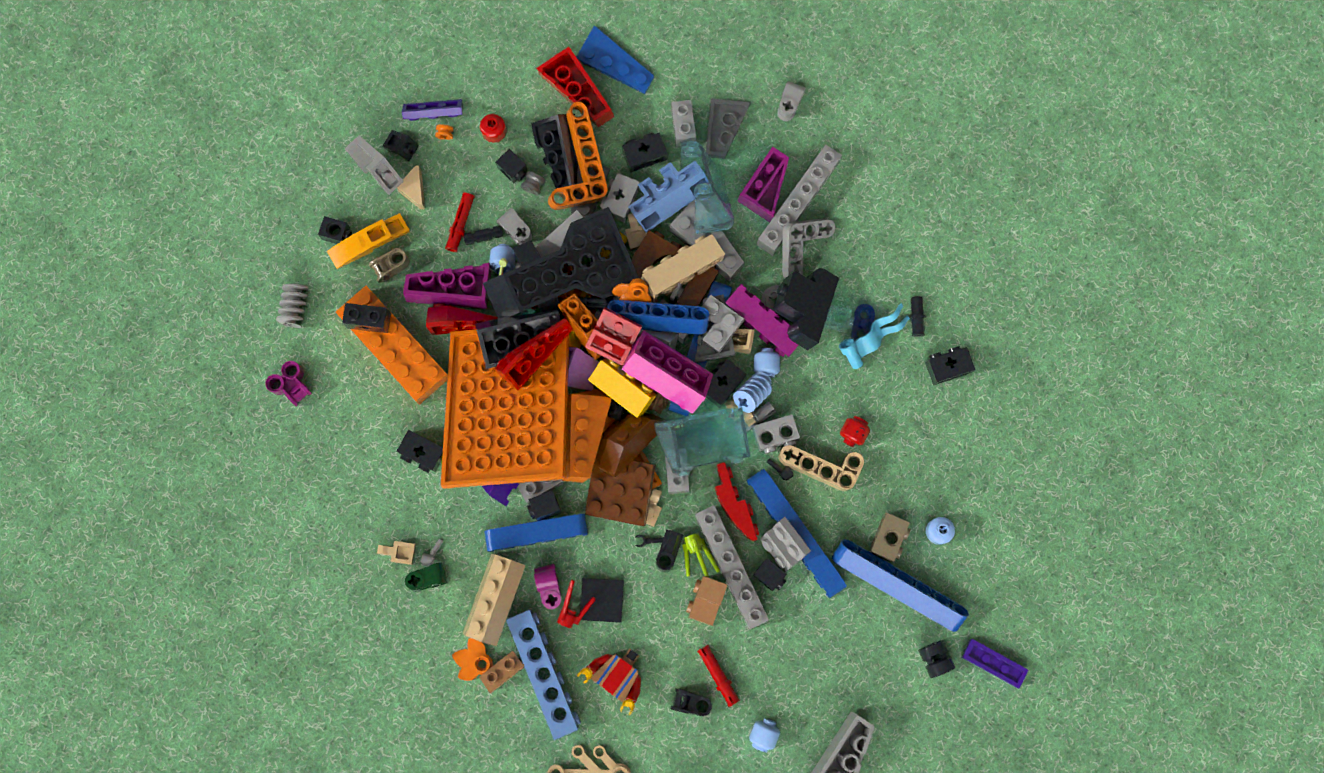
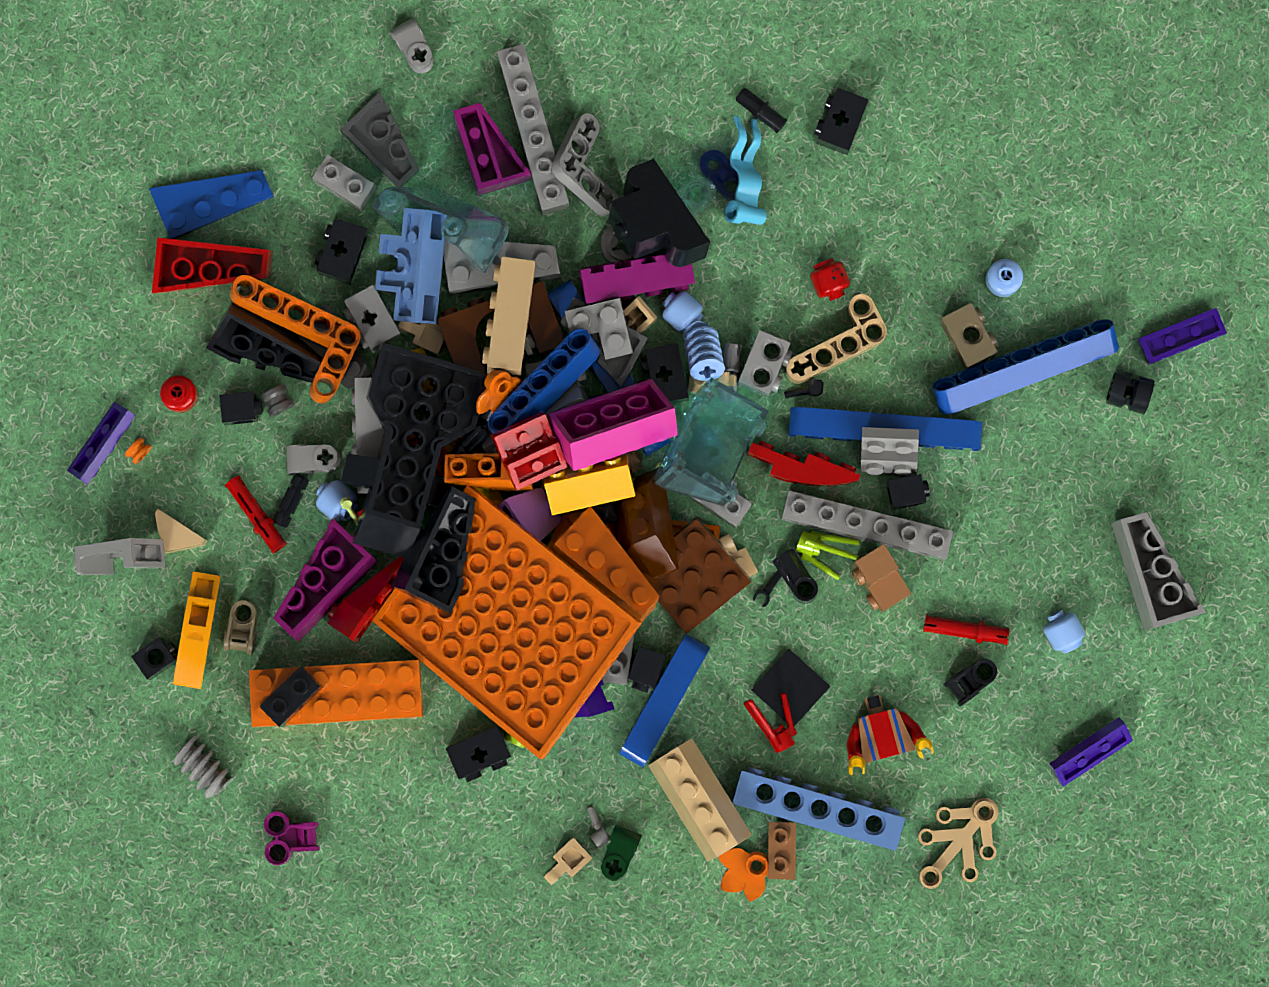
camera: 50 degrees left, 5 degrees up
(401, 145) = (113, 510): black bracket -> none
(527, 358) = (477, 564): red wedge -> none
(547, 583) = (730, 730): magenta piece -> none

